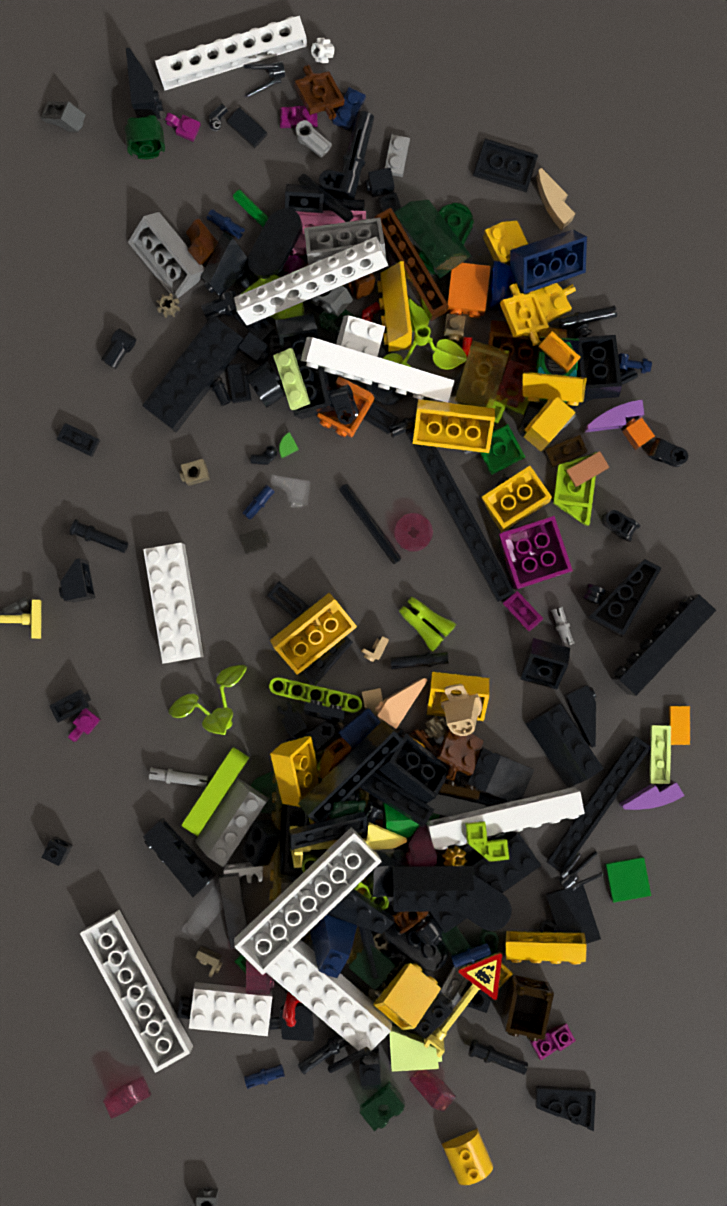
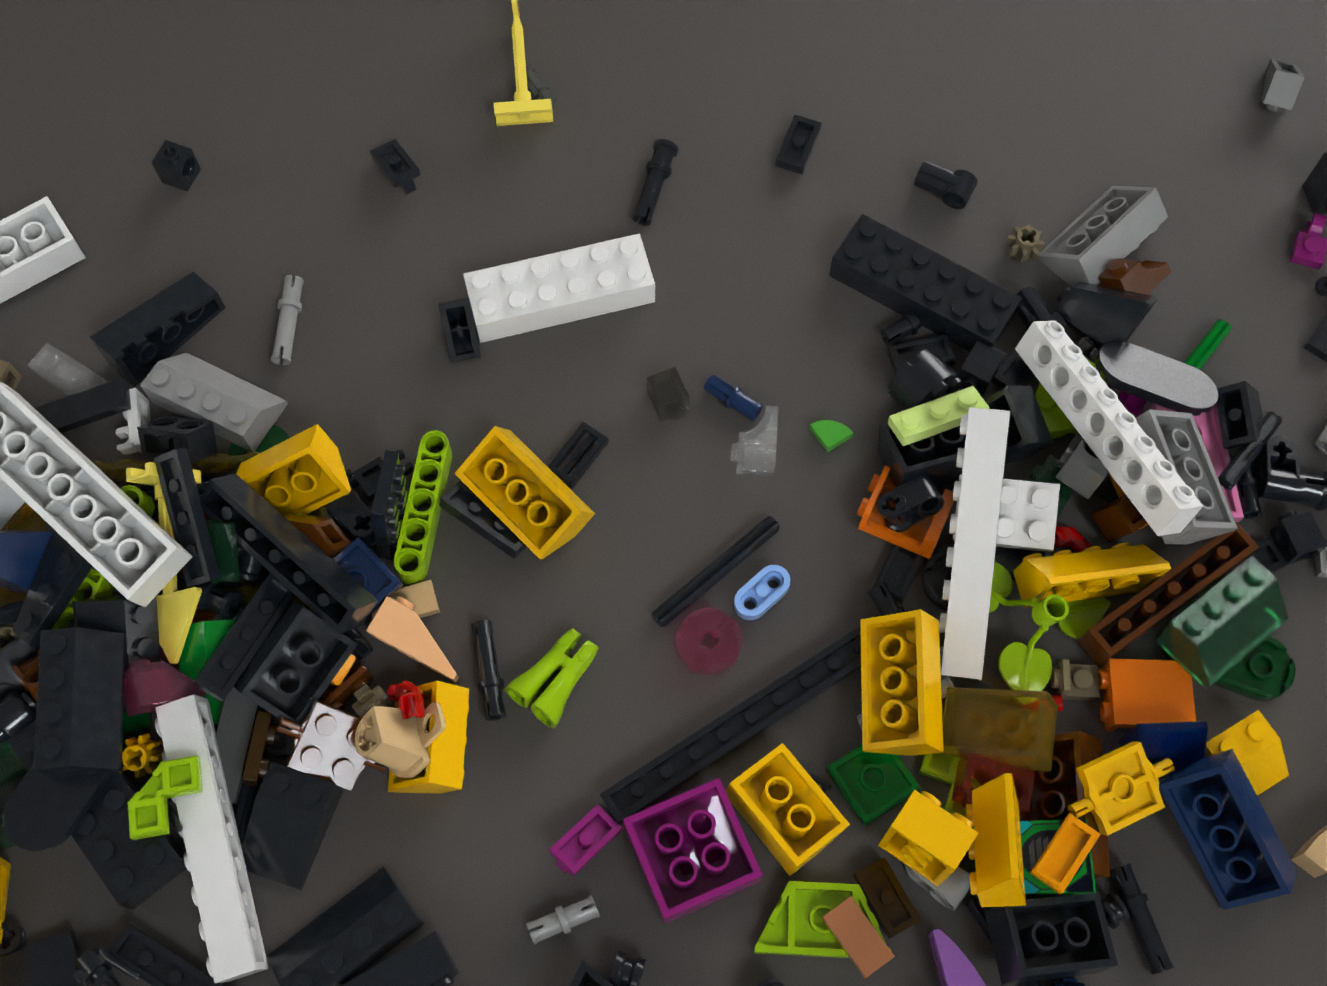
camera: 80 degrees right, 20 degrees down
(77, 583) = (582, 154): black slope -> none
(85, 723) = (369, 190): magenta plate -> none
(144, 137) = (1278, 186): dark green brick -> none
(199, 668) = (459, 329): none -> black slope
(202, 476) = (769, 312): dark tan brick -> none
(215, 791) = (265, 371): lime beam -> none
(221, 718) = (383, 365): lime plant -> none
(225, 224) = (1171, 313): dark blue pin -> none
(267, 457) = (804, 402): black arm -> none
(379, 647) = (505, 601): tan bracket -> none
(386, 499) = (760, 593): none -> light blue plate
(439, 702) = (409, 697): none -> red piece
(545, 663) = (493, 891): black slope -> none
(554, 300) = (1156, 848): yellow plate -> none

